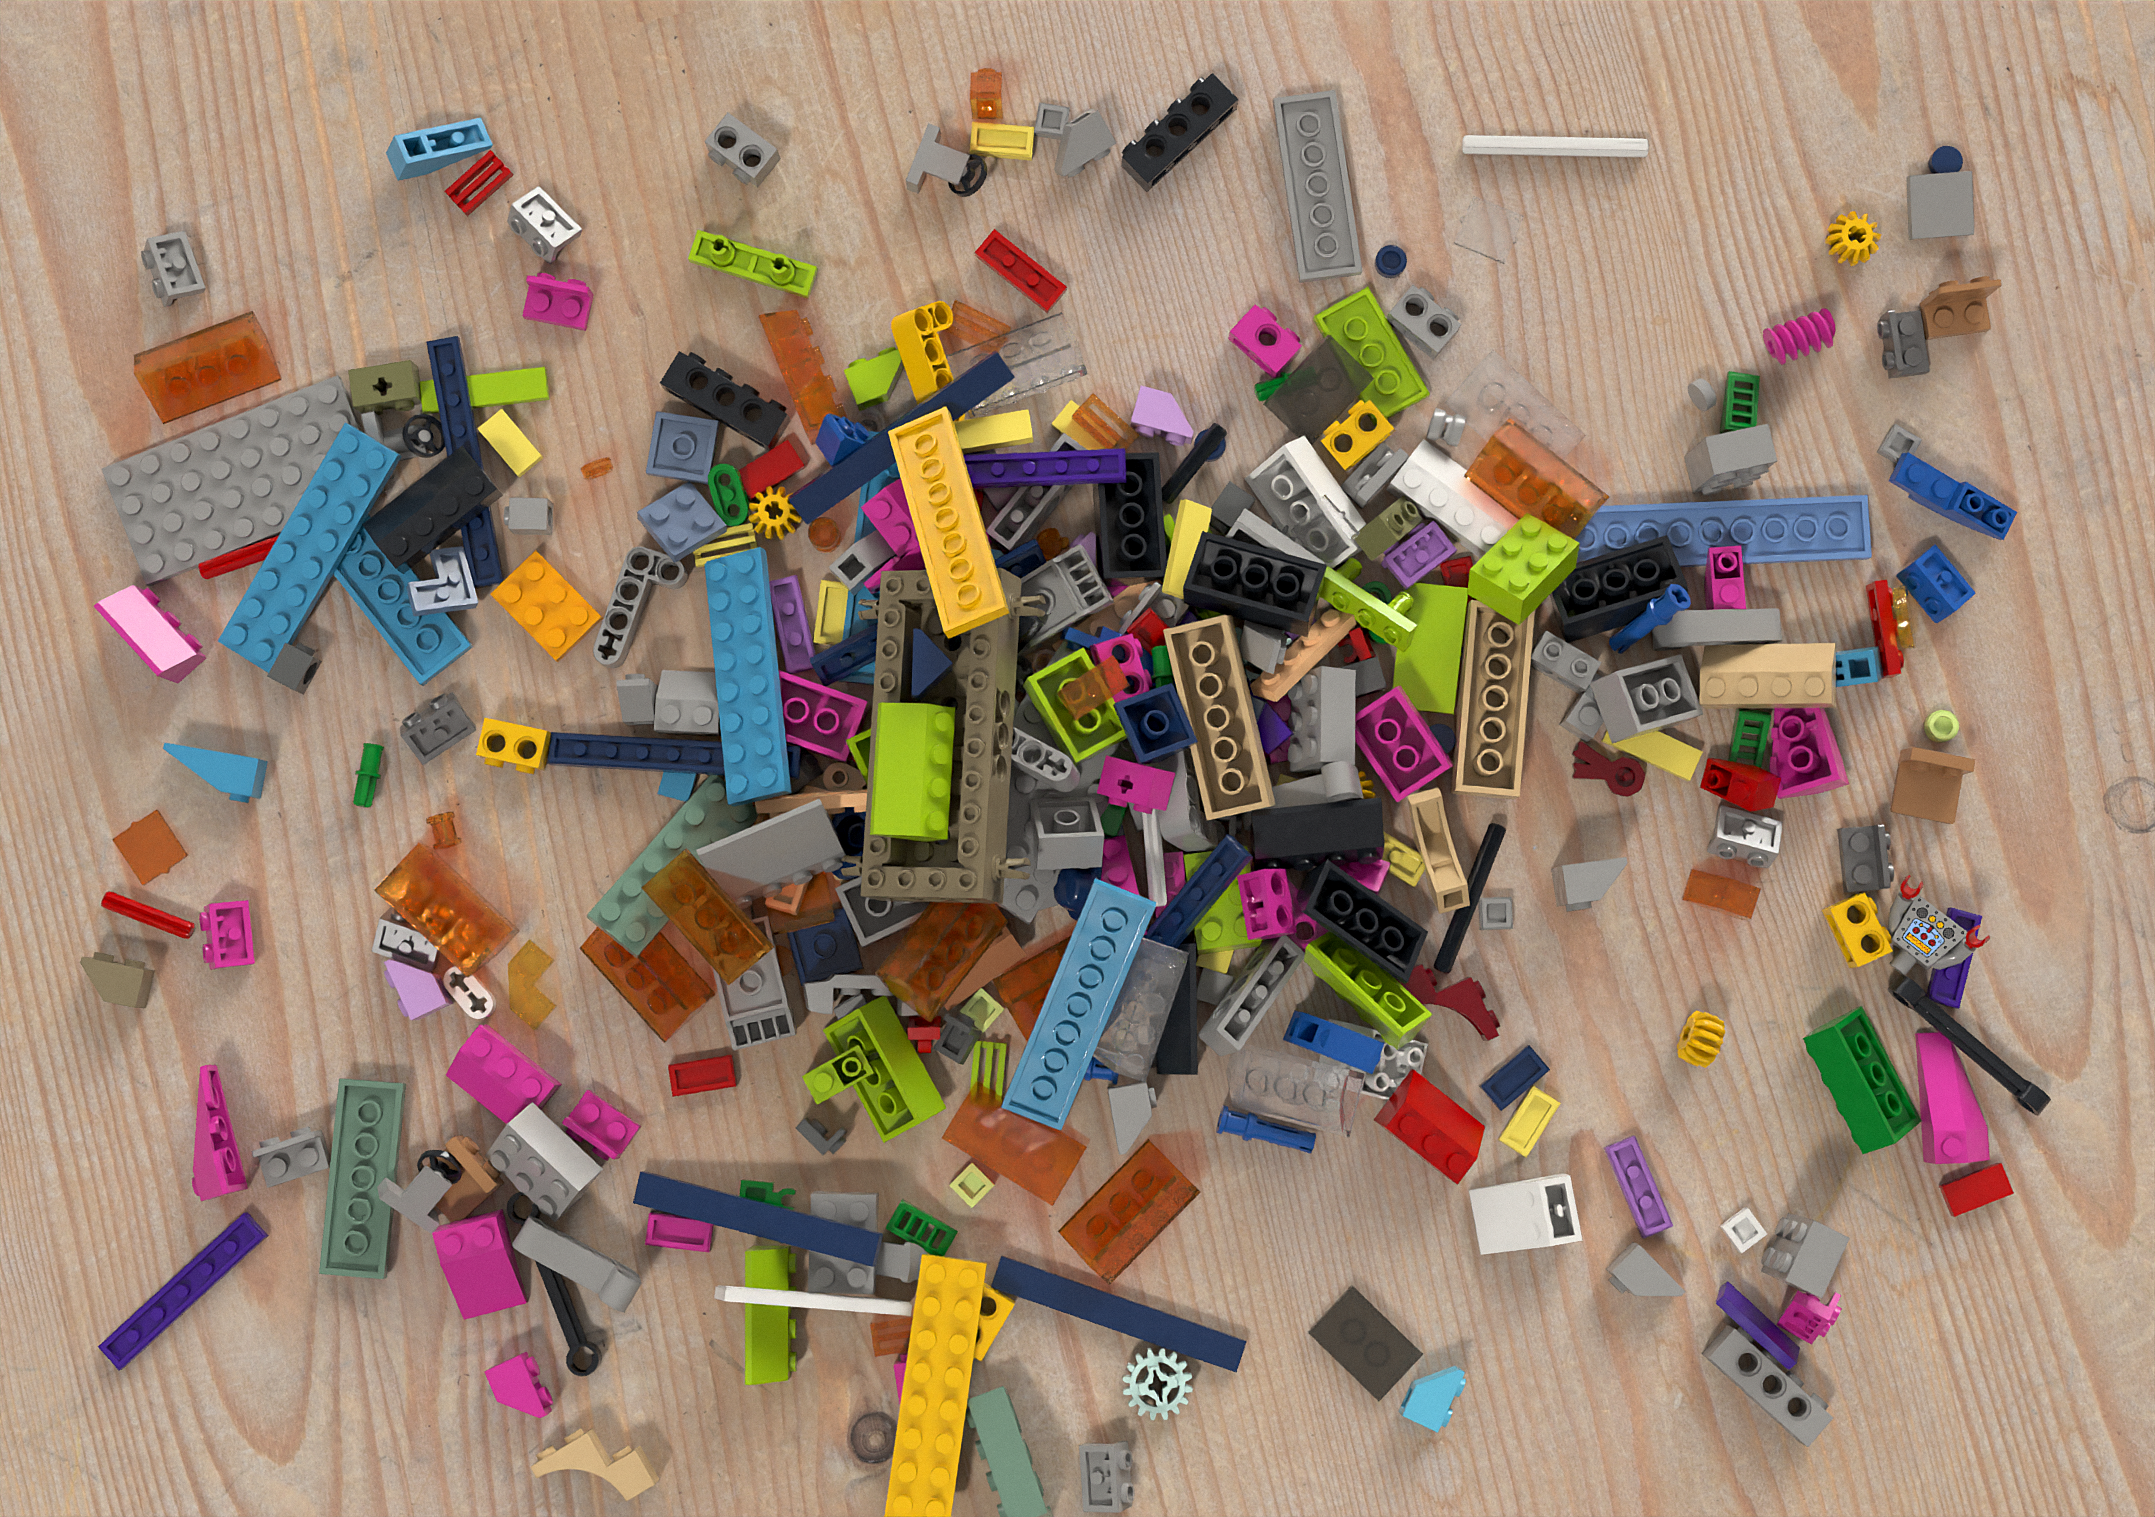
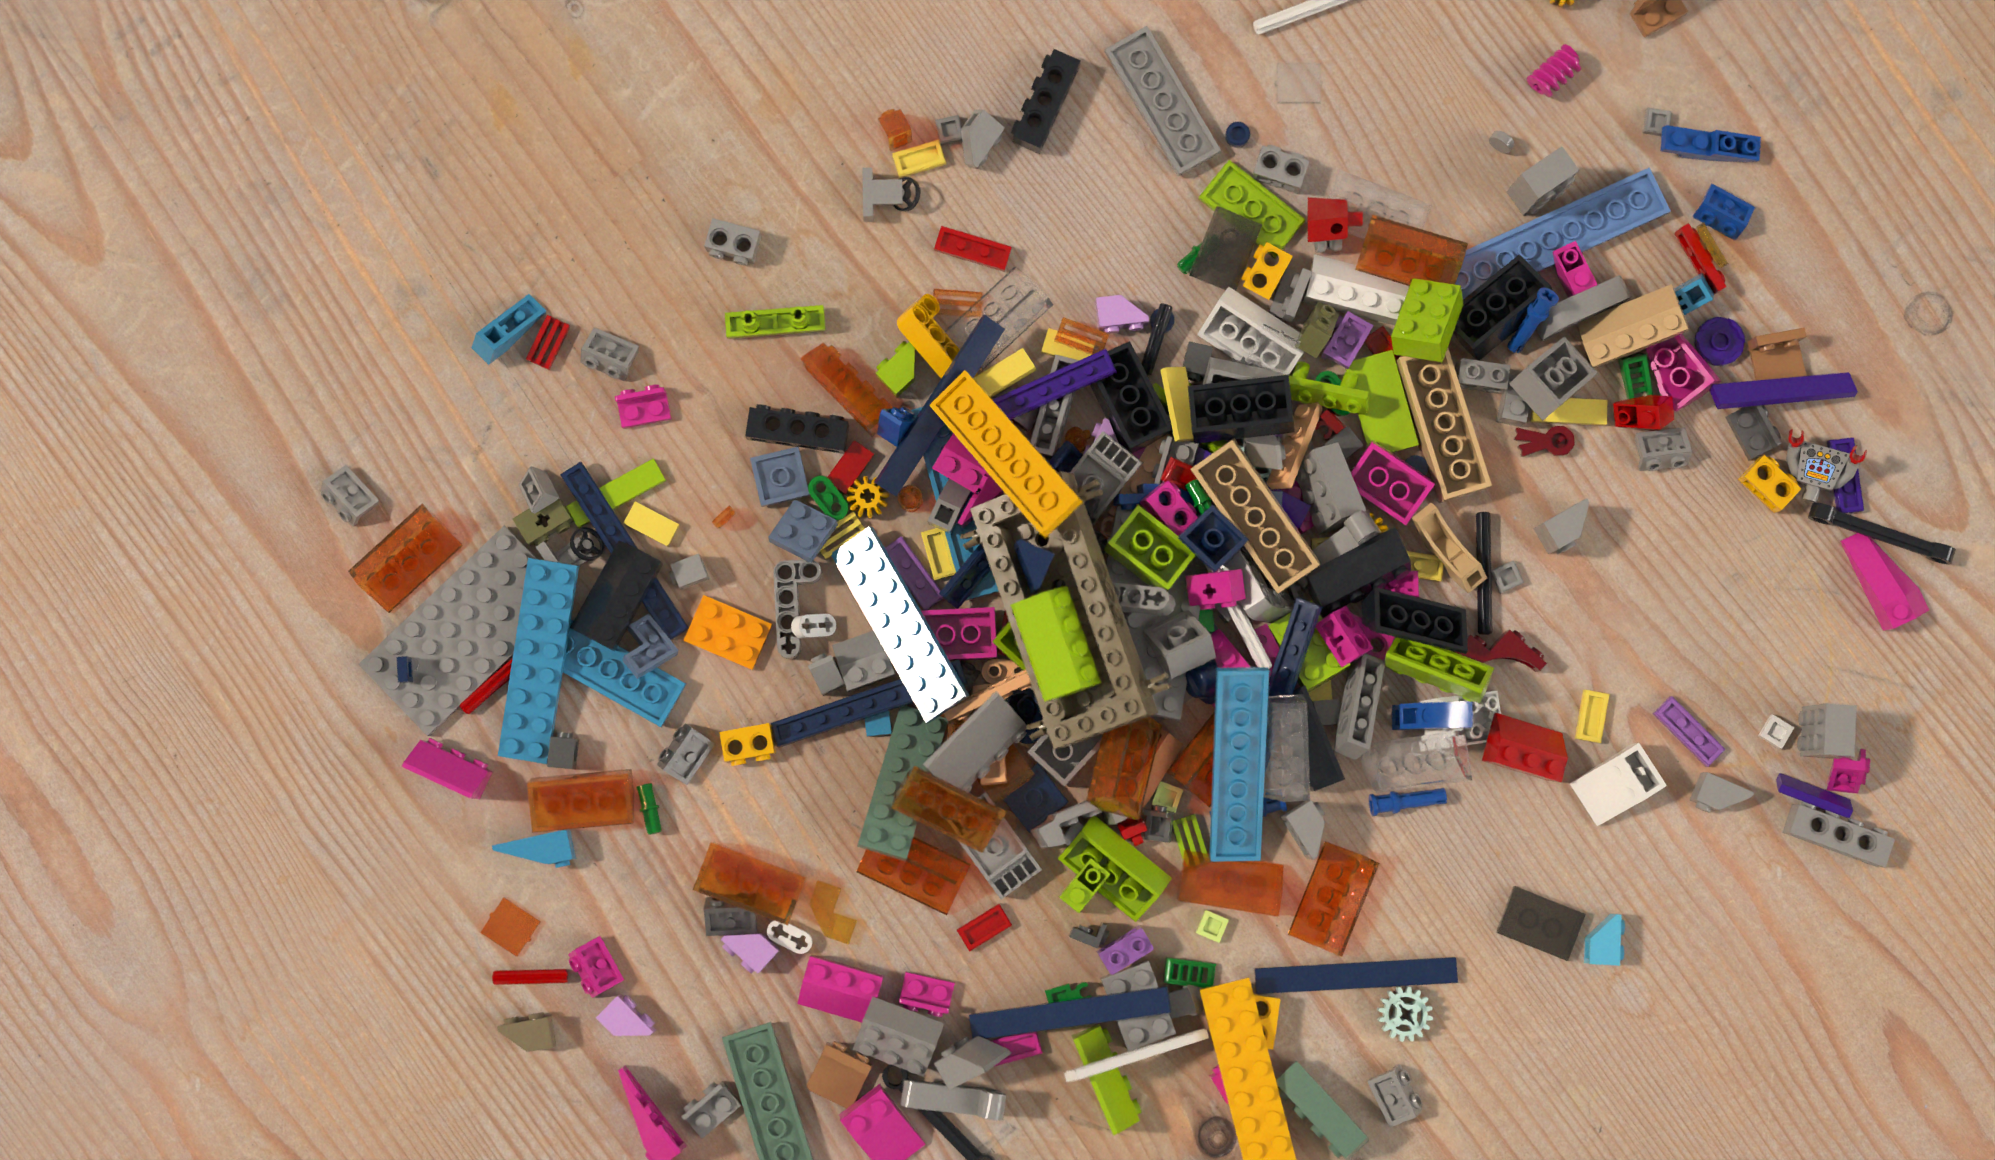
camera: 25 degrees left, 0 degrees up
(148, 495) = (404, 669): none -> dark blue tile
(234, 1009) = (624, 1020): none -> lavender slope
(290, 732) = (581, 800): none -> clear orange slope
(393, 348) = (537, 489): none -> light grey slope
(424, 1191) = (820, 1092): light grey piece -> none
(443, 830) = (722, 826): clear orange bush -> none
(614, 1224) = (969, 1060): none -> light grey slope
(649, 632) = (813, 621): none -> white beam
(855, 1171) = (1125, 950): none -> medium lavender bracket
(876, 1339) = (1195, 1073): clear orange tile -> none
(1093, 688) = (1158, 531): clear orange slope -> none
(1271, 358) = (1180, 240): dark pink brick -> none
(1456, 403) = (1330, 219): none -> red torso
(1514, 1077) = (1569, 689): dark blue tile -> none
(1701, 1039) = (1691, 607): yellow gear -> none
(1721, 894) = (1662, 497): clear orange slope -> none
(1727, 424) = (1533, 157): green slope -> none
(1862, 1080) = (1816, 590): green slope -> none
(1867, 736) = (1719, 341): none -> dark purple tile
(1903, 344) = (1630, 47): flat silver bracket -> none
(1919, 825) = (1783, 390): none -> dark purple tile
(1941, 726) = (1769, 312): yellowish green tile -> none
(1976, 1189) = (1928, 635): red tile -> none

